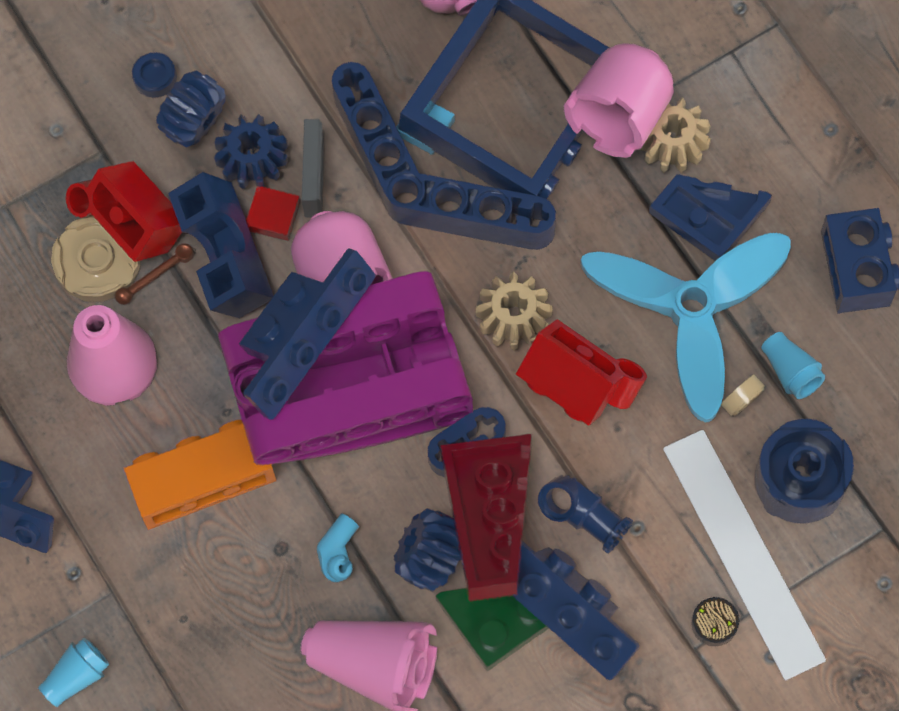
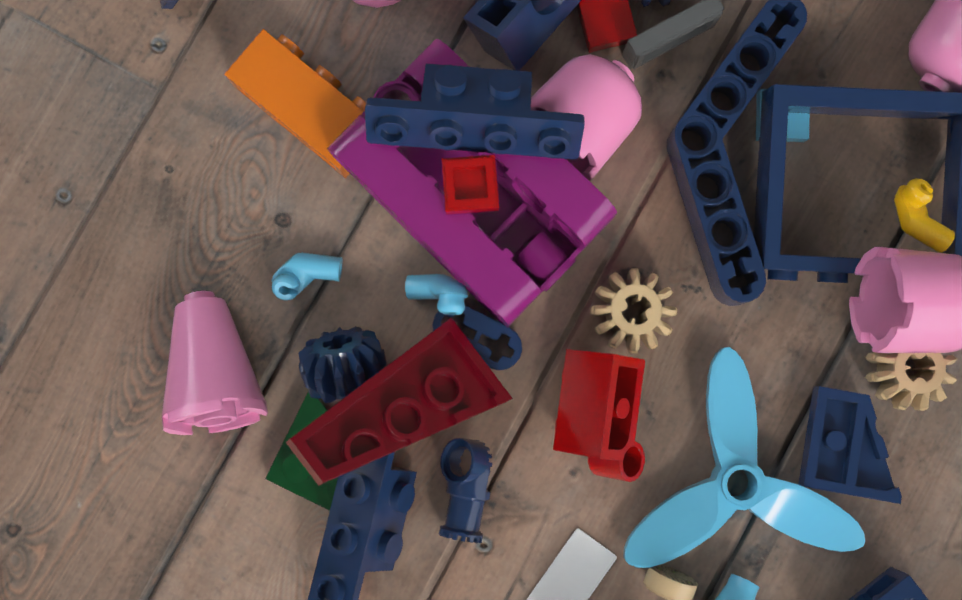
camera: 60 degrees right, 15 degrees up
(75, 670) = (60, 99): medium azure cone -> none
(349, 362) = (470, 184): none -> red tile
(411, 445) = (438, 286): none -> medium azure arm
(557, 69) = (914, 216): none -> yellow arm

